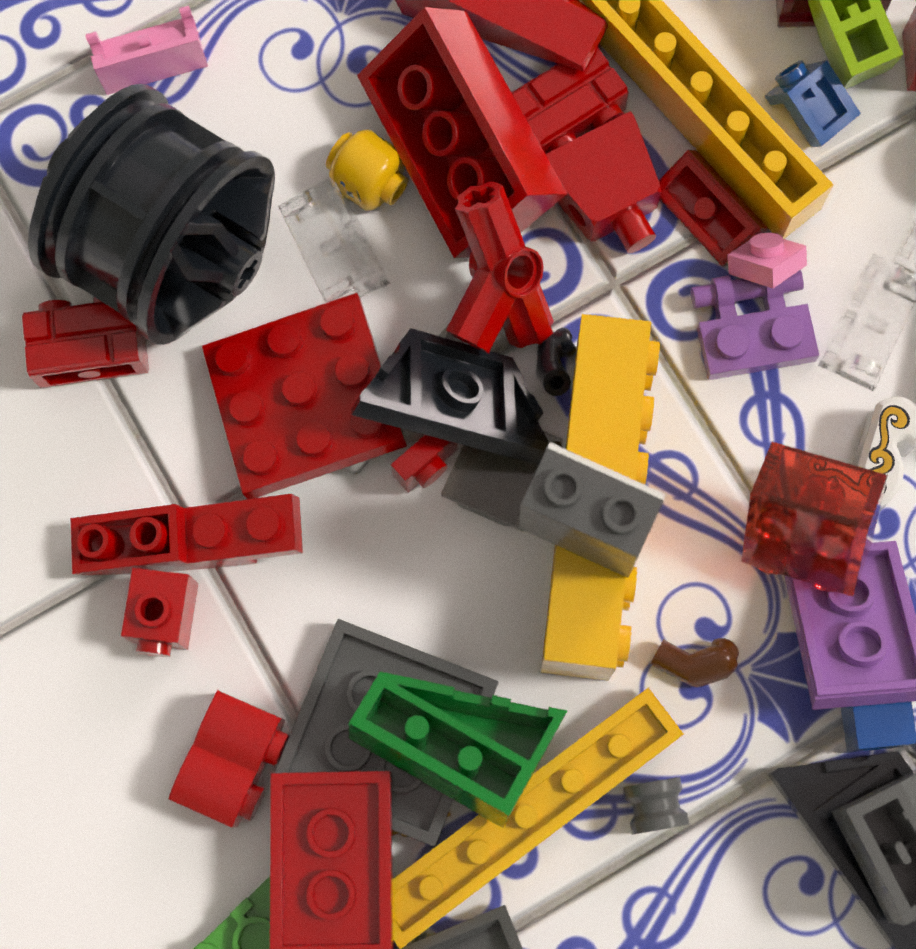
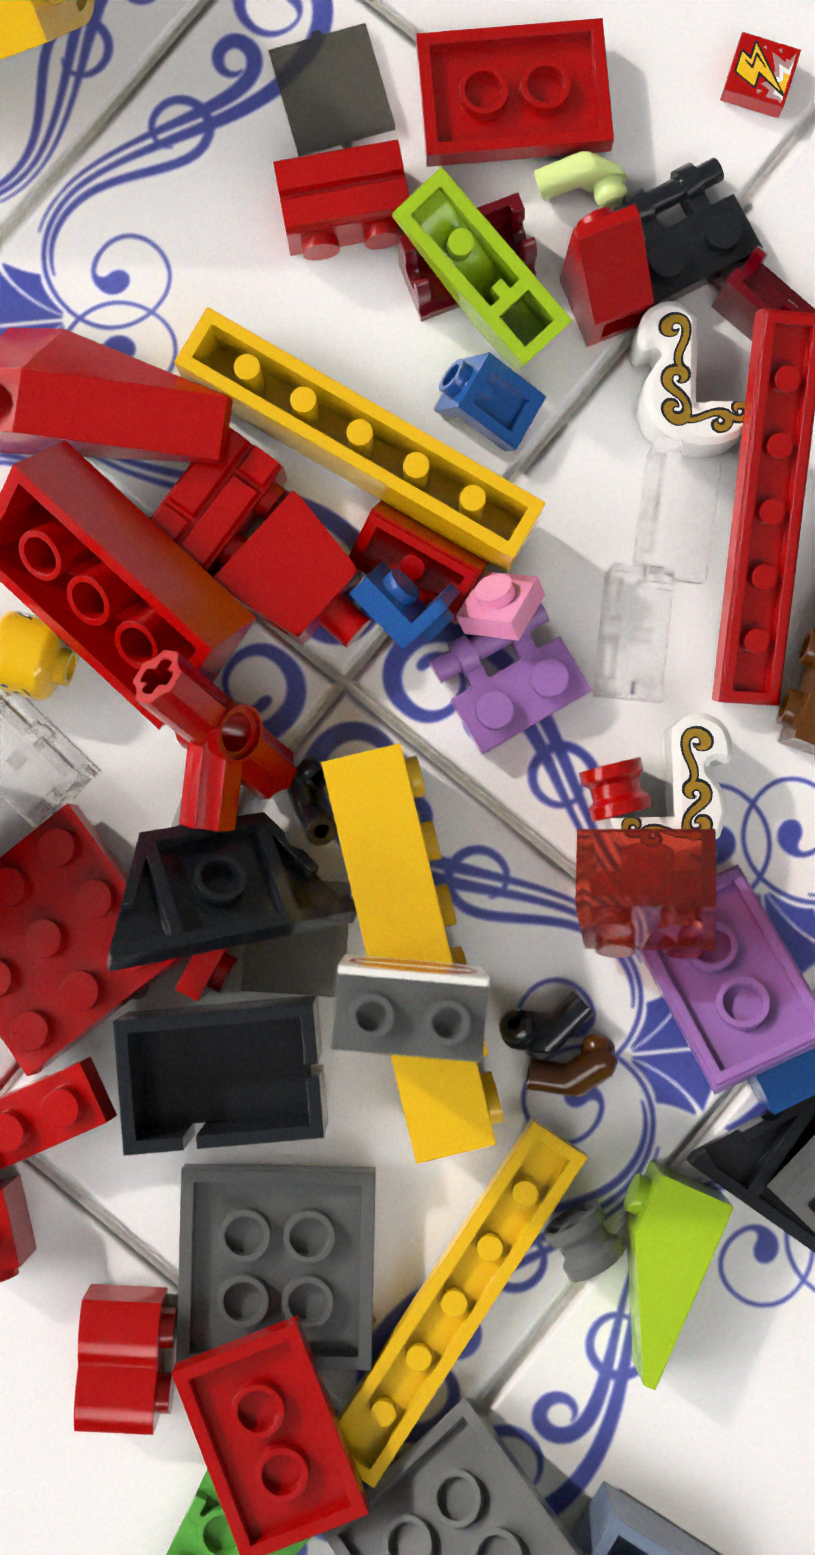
camera: 25 degrees left, 10 degrees up
(402, 547) = (224, 1066): none -> black piece
(456, 740) = (355, 1272): green wedge -> none
(680, 229) = (395, 605): none -> blue bracket
(681, 620) = (544, 1031): none -> black arm
(724, 842) = (670, 1244): none -> lime slope
(814, 432) = (615, 789): none -> red wheel

